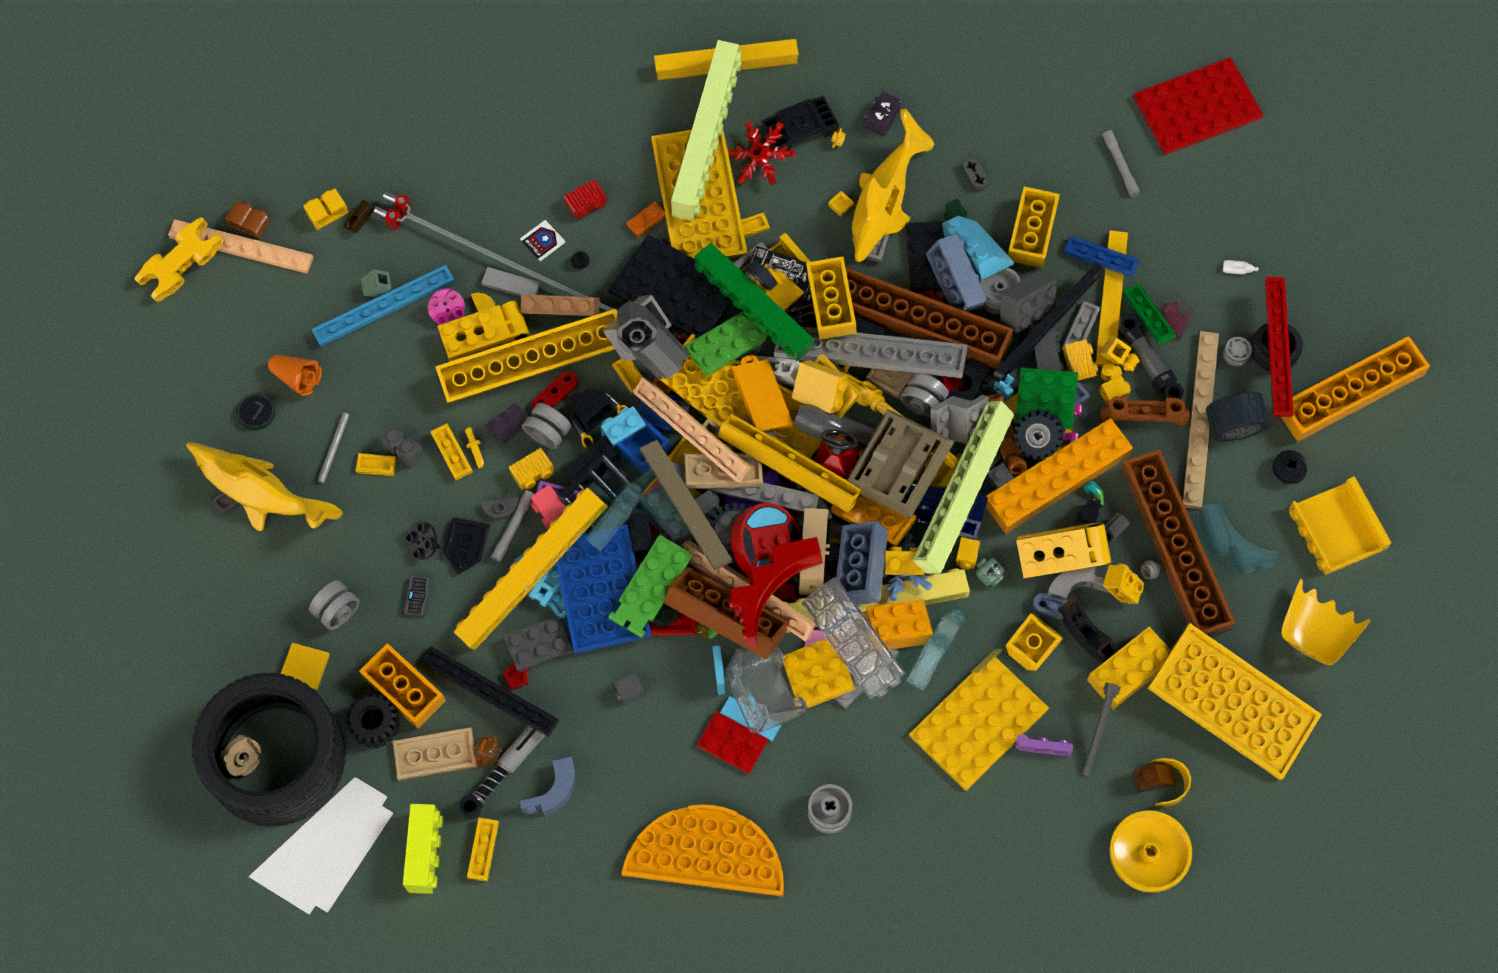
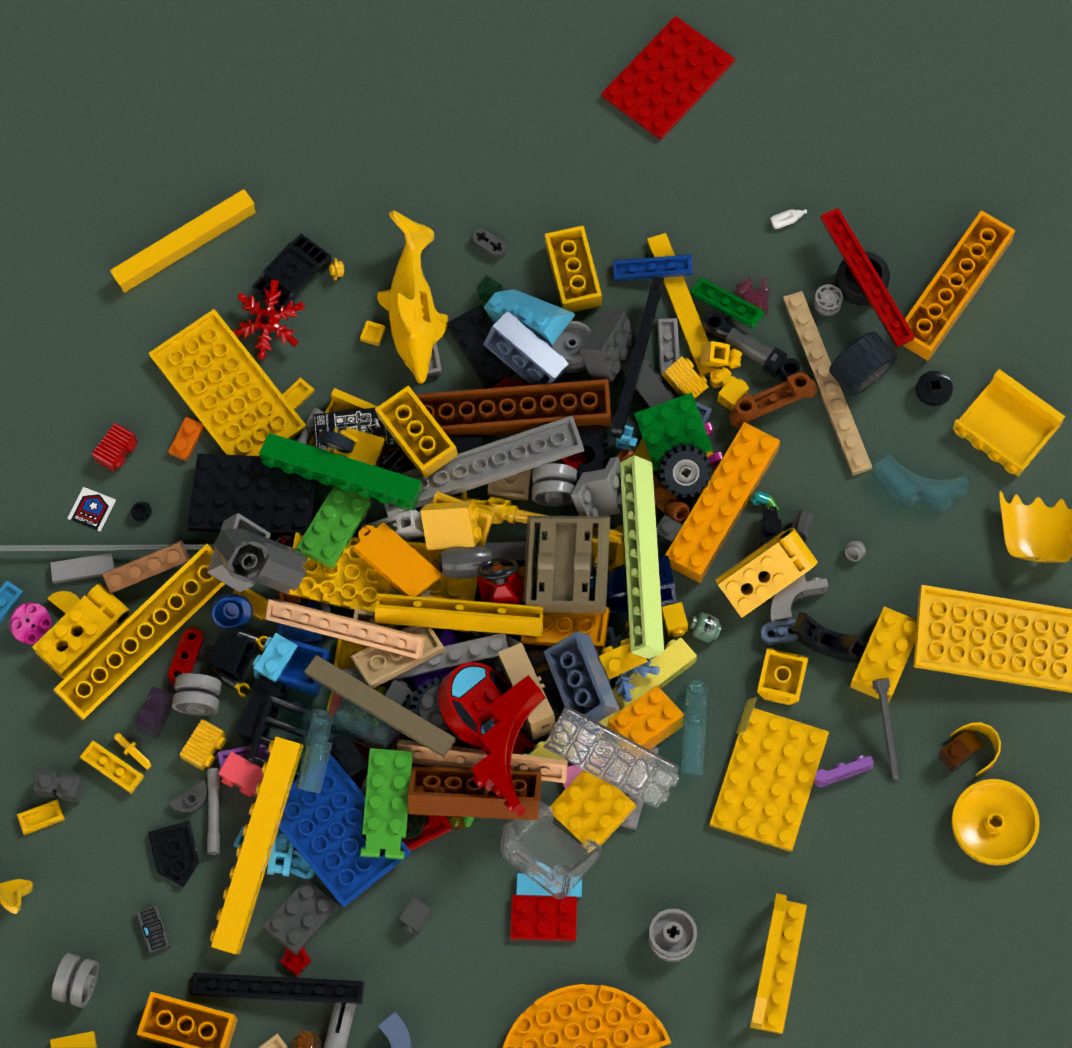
camera: 25 degrees left, 0 degrees up
(422, 540) = (134, 864): black plate -> none
(609, 373) = (231, 611): none -> blue hat
(706, 130) = (205, 322): yellowish green brick -> none
(719, 673) = (495, 853): medium azure tile -> none
(882, 114) = (368, 224): clear purple brick -> none
(908, 881) = (778, 965): none -> yellow plate
(1123, 584) = (838, 577): yellow brick -> none
(1129, 181) = (607, 153): light grey piece -> none
(1177, 544) = (868, 513): dark orange brick -> none

